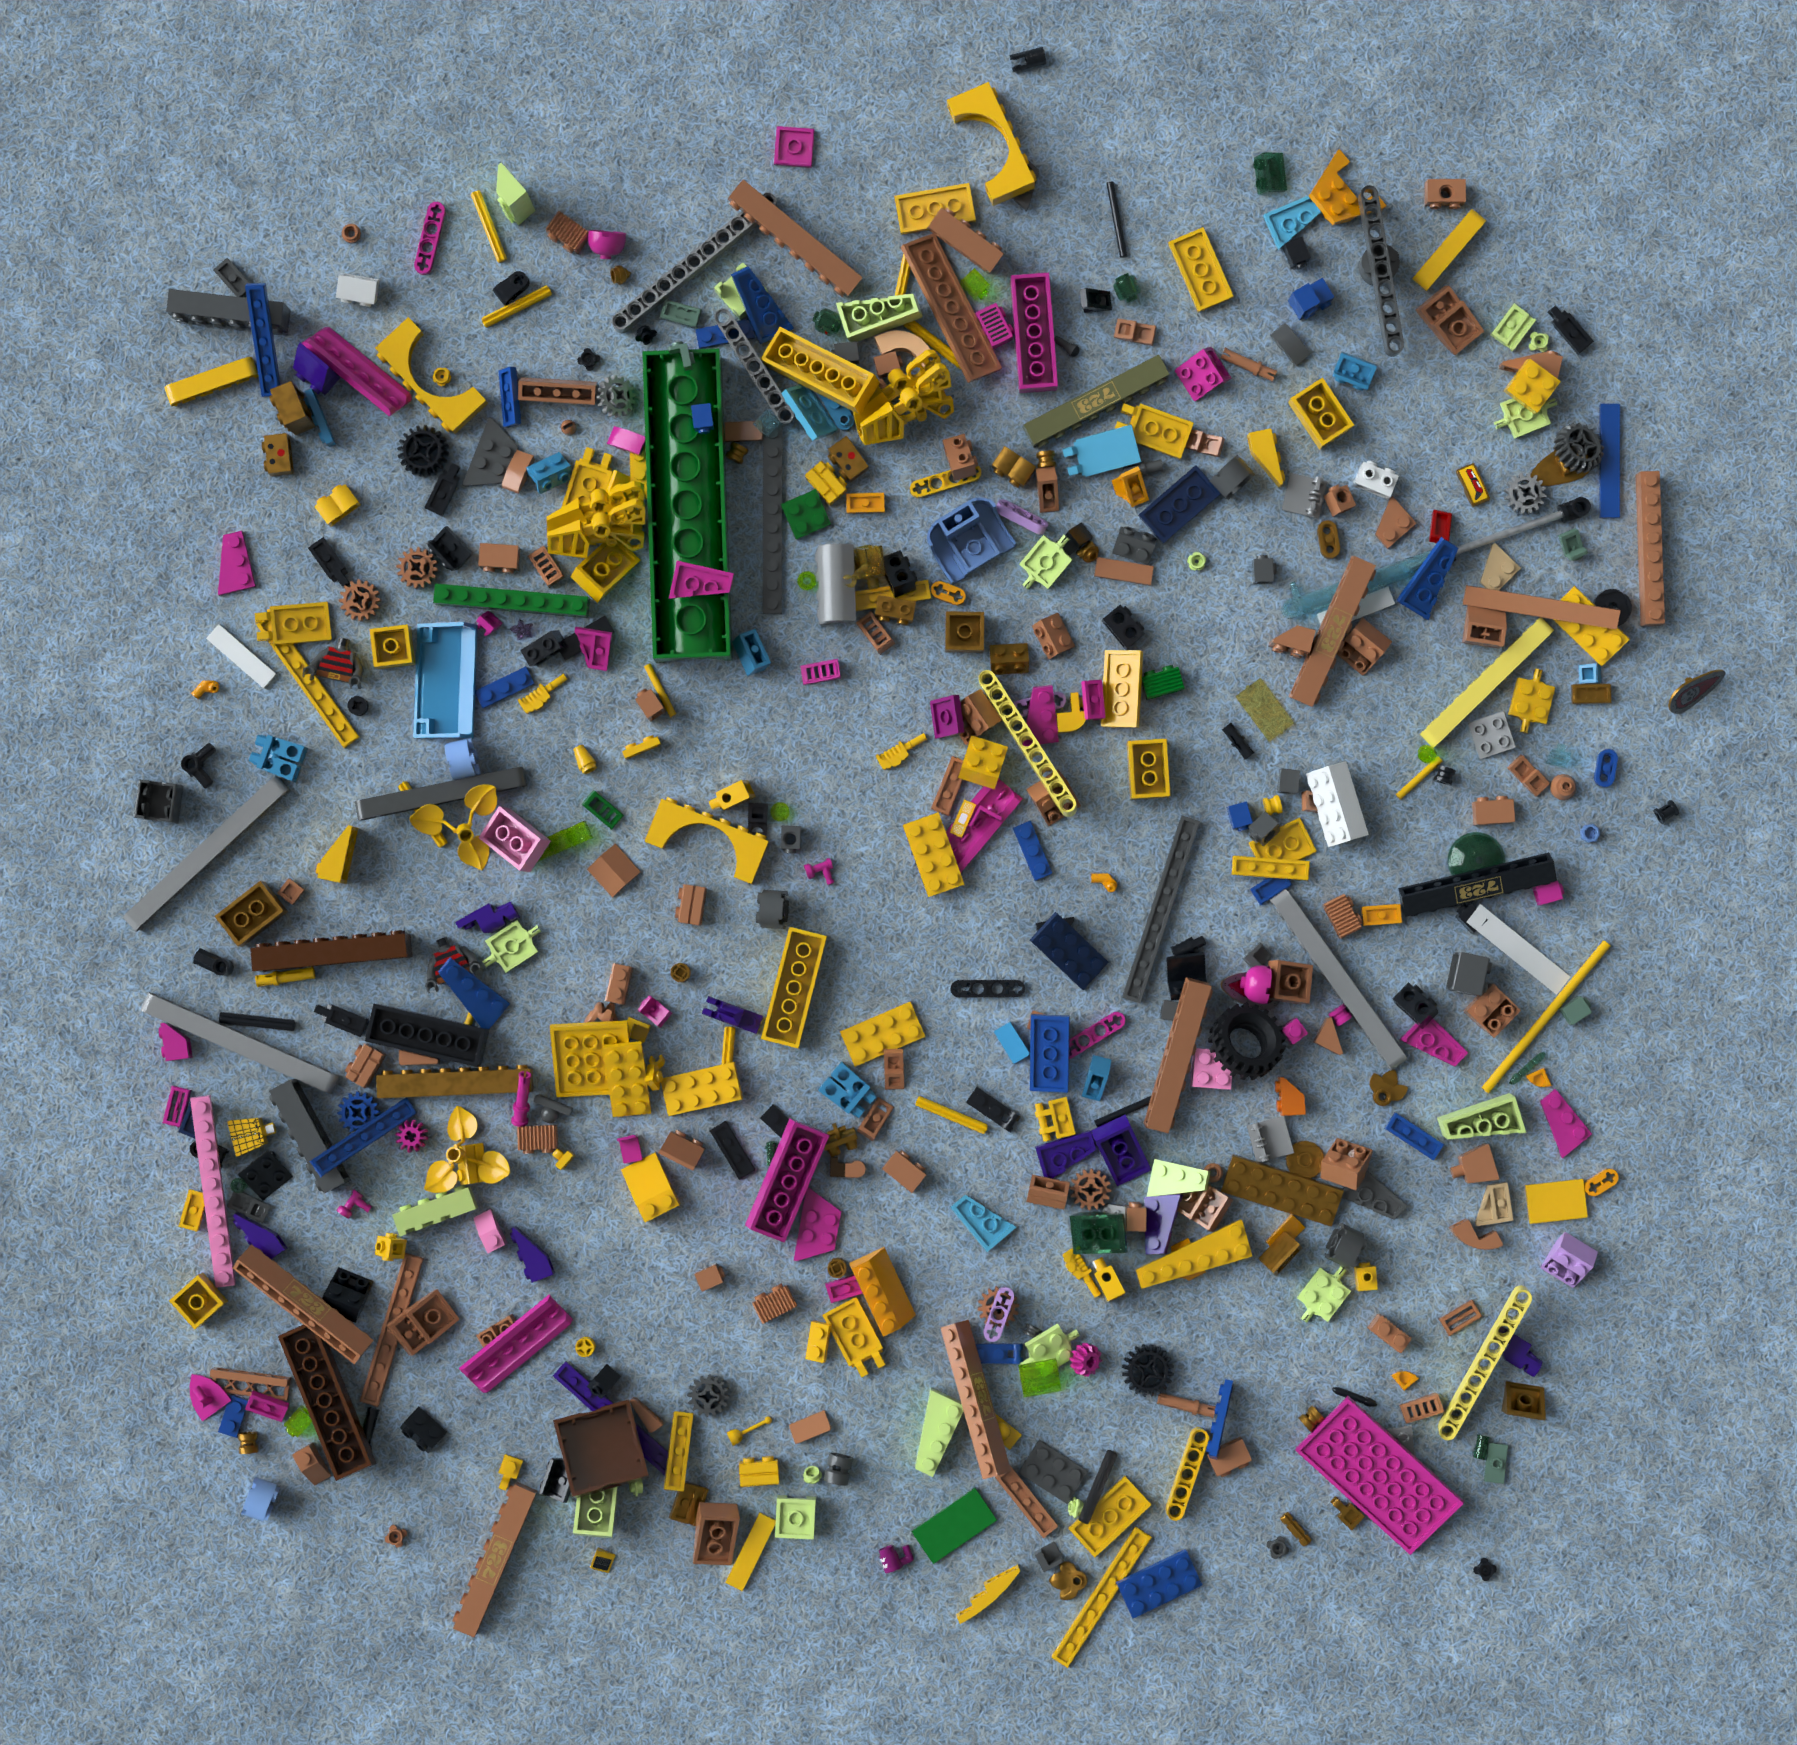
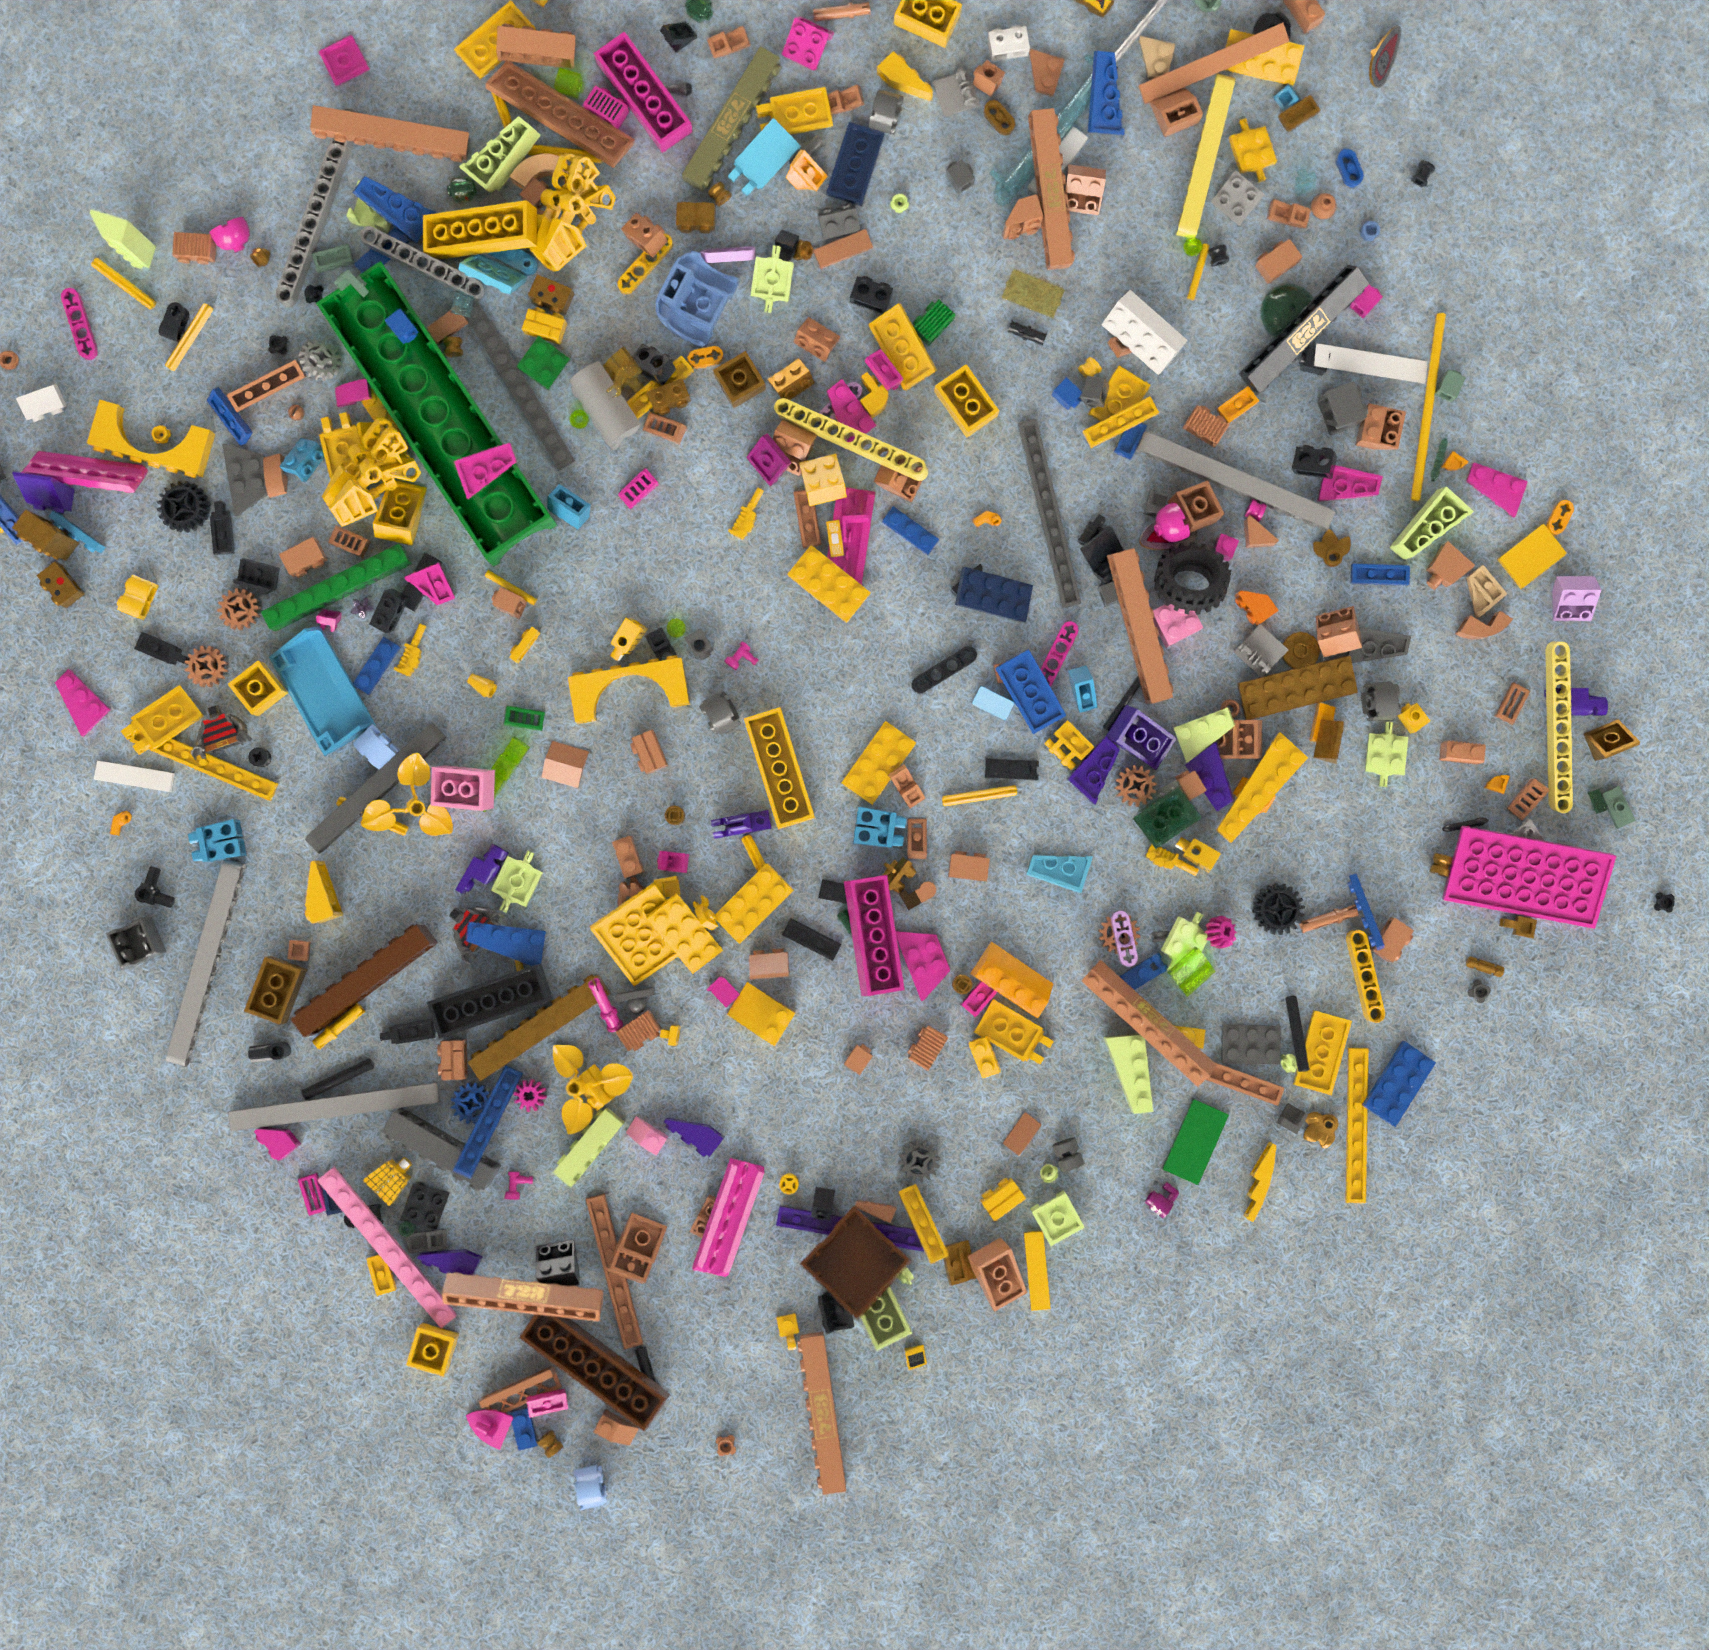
camera: 35 degrees left, 0 degrees up
(298, 1422) = (582, 1400): clear neon green brick -> none
(390, 1247) = (569, 1201): yellow brick -> none
(411, 1058) = (489, 1029): nougat slope -> none
(422, 1430) = (693, 1340): black bracket -> none
(736, 1436) = (963, 1179): yellow hinge -> none
(865, 503) = (588, 323): light orange plate -> none
(1047, 489) = (736, 218): nougat slope -> none
(1048, 1192) = (1101, 809): nougat brick -> none
(1288, 781) = (1090, 340): dark grey panel -> none
(1440, 526) = (1085, 48): red tile -> none

